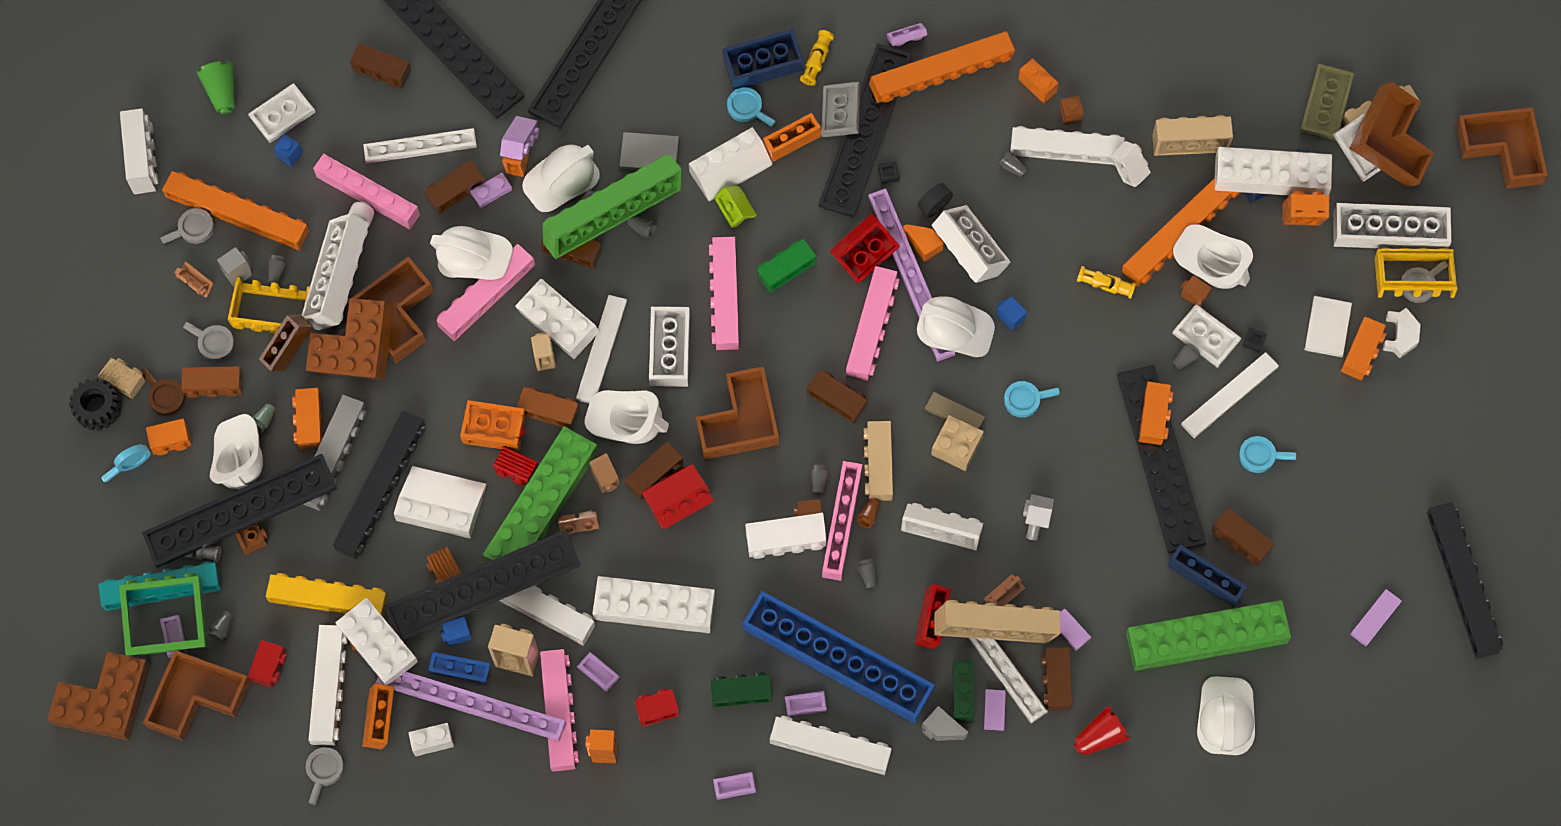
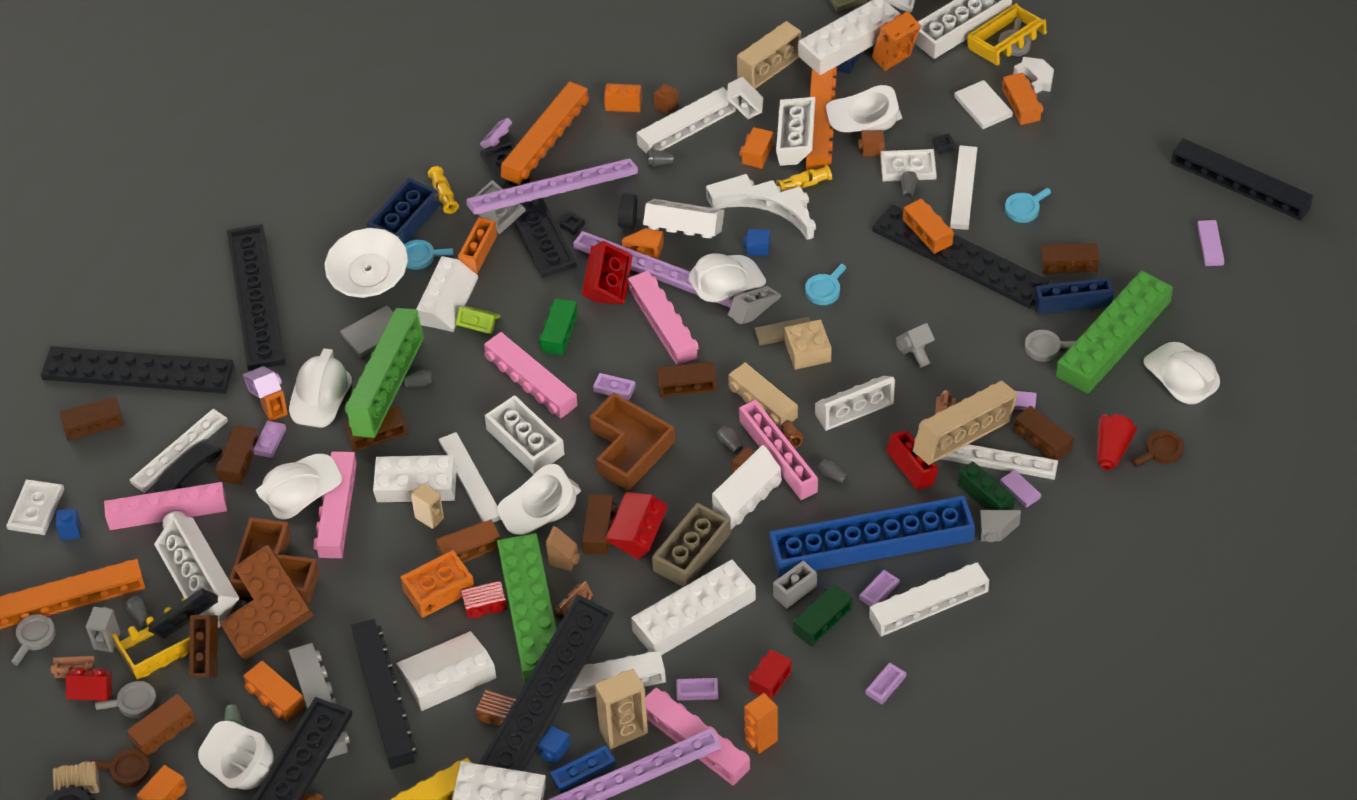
camera: 40 degrees left, 20 degrees down
(189, 306) = (88, 684): none -> red brick
(293, 303) = (180, 614): none -> black plate
(412, 166) = (187, 464): none -> black slope
(690, 70) = (363, 251): none -> white dish
(700, 550) = (691, 545): none -> dark tan brick
(742, 649) = (795, 584): none -> light grey brick
(778, 356) = (608, 384): none -> lavender plate
(897, 128) = (551, 186): none -> lavender plate
(953, 369) = (751, 304): none -> light grey slope
(1045, 254) = (767, 196): none -> white arch
(1098, 219) = (757, 147): none -> orange brick
(1140, 228) = (795, 130): none -> white slope
(1141, 769) = (1162, 447): none -> reddish brown piece
(1143, 599) = (1045, 345): none -> light grey piece

